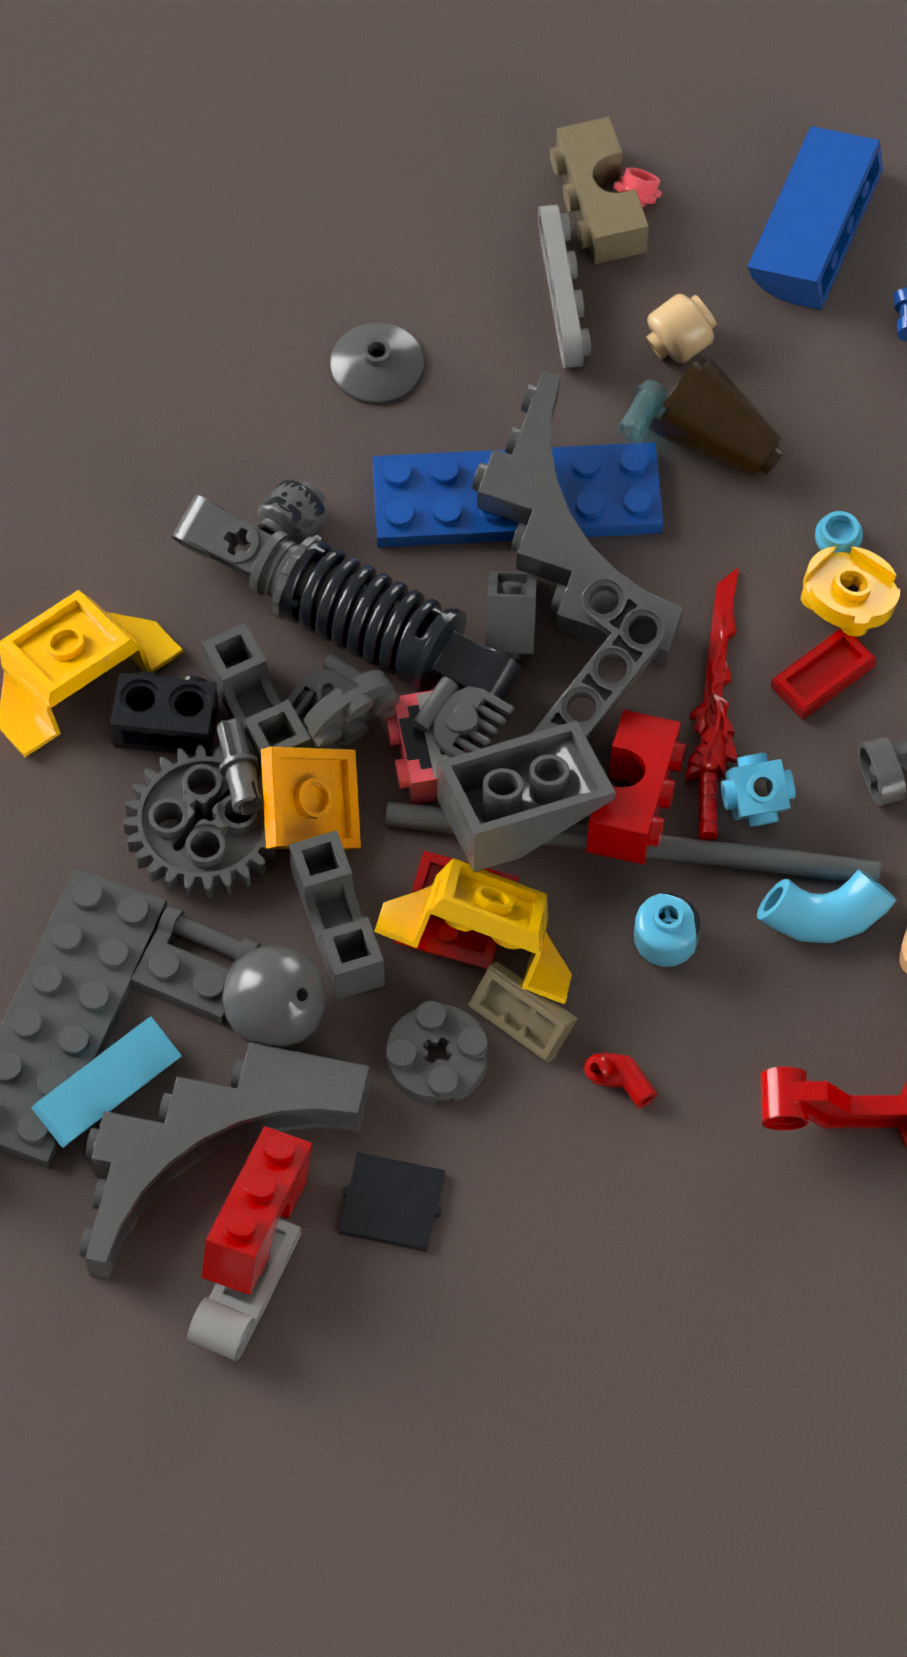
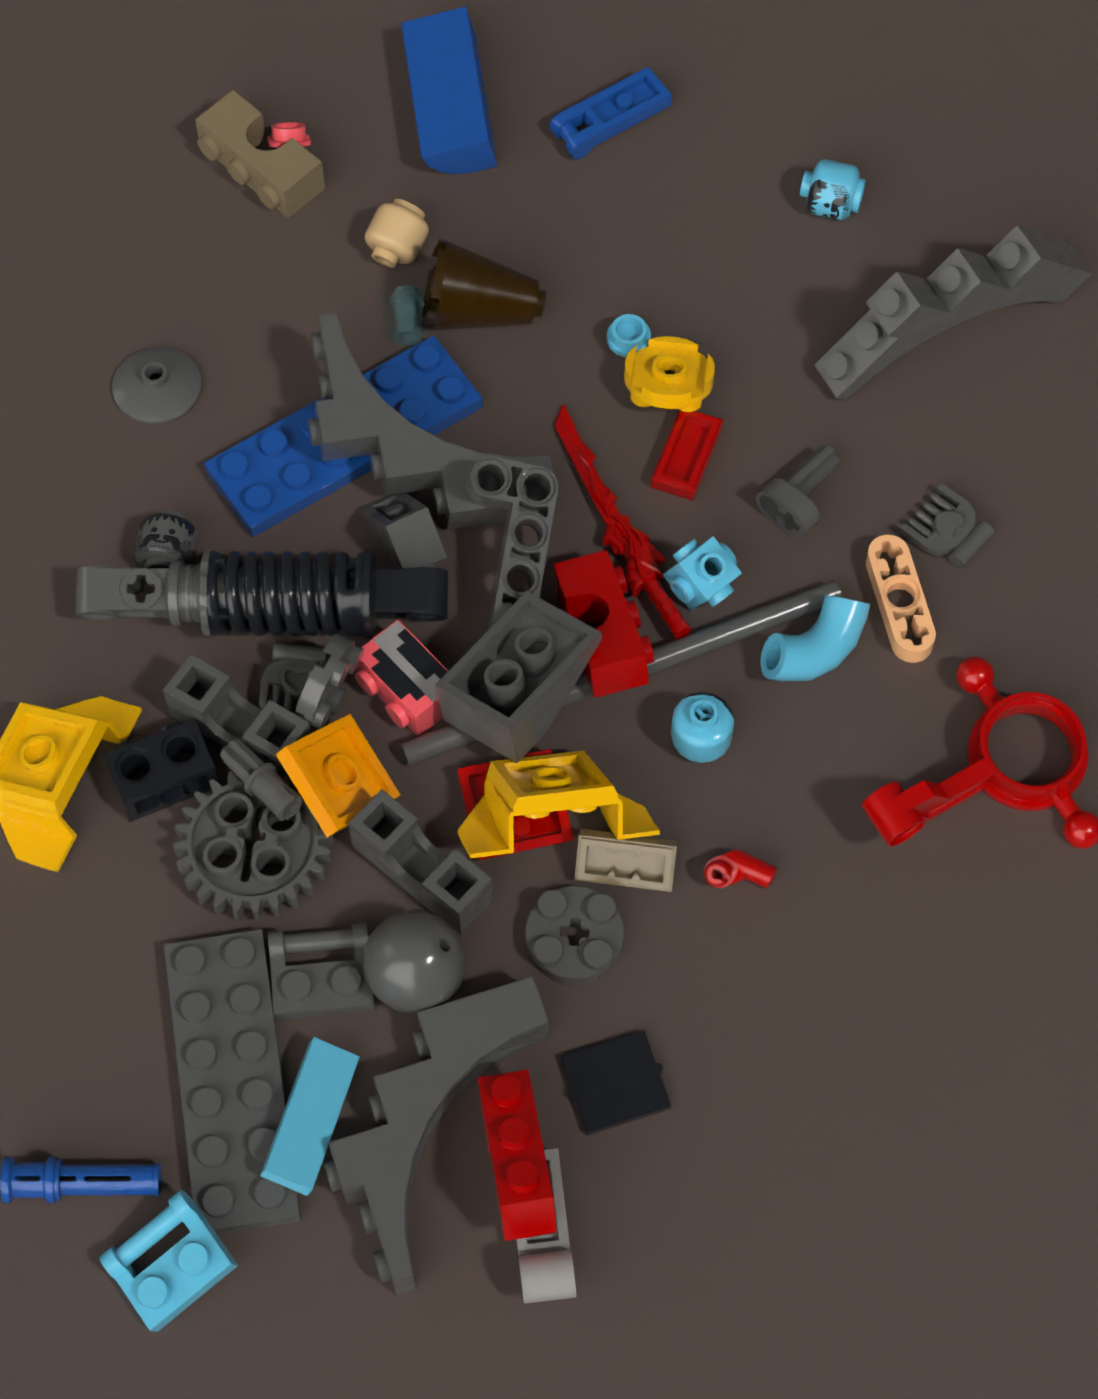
camera: 30 degrees left, 0 degrees up
(457, 718) = (422, 641): dark grey piece -> none
(560, 270) = (269, 239): light grey plate -> none

